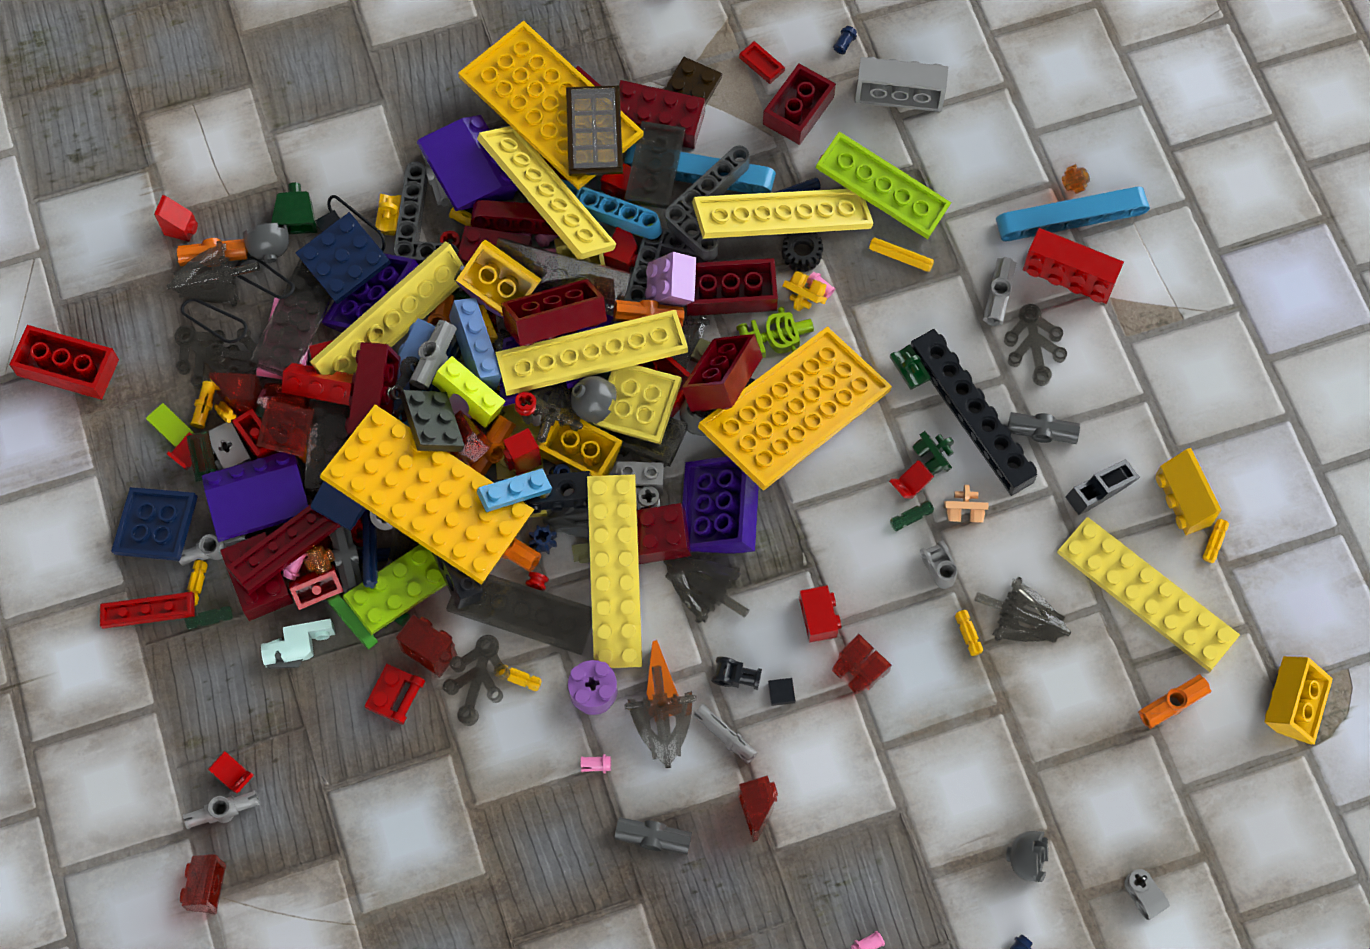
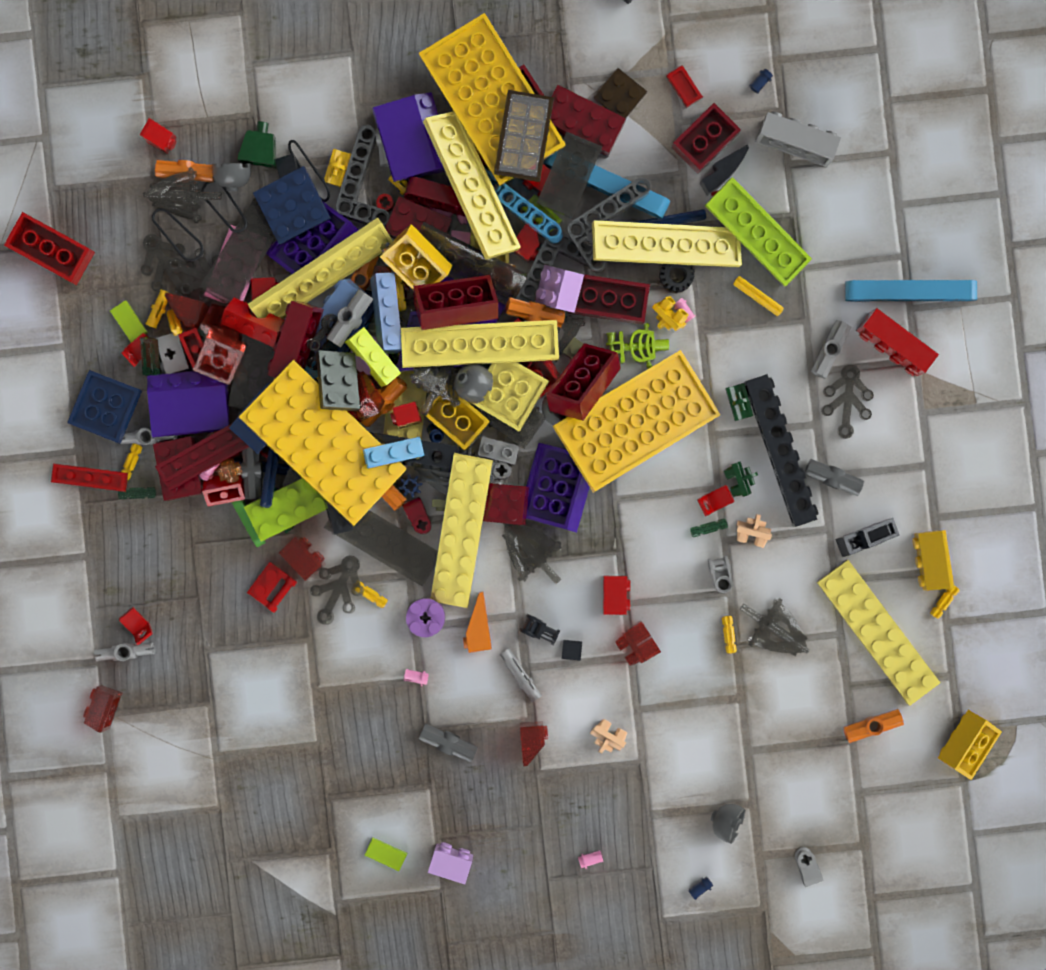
camera: 10 degrees right, 20 degrees up
(296, 644) = (200, 533): light aqua plate -> none
(524, 397) = (416, 374): red bush -> none
(537, 581) = (399, 519): red bush -> none
(558, 570) = (416, 512): none -> dark red piece
(665, 744) = (471, 674): clear smoke bar -> none
(825, 132) = (723, 170): none -> black slope
(852, 787) = (608, 739): none -> light nougat hips
(1075, 179) = (922, 259): clear orange gear -> none

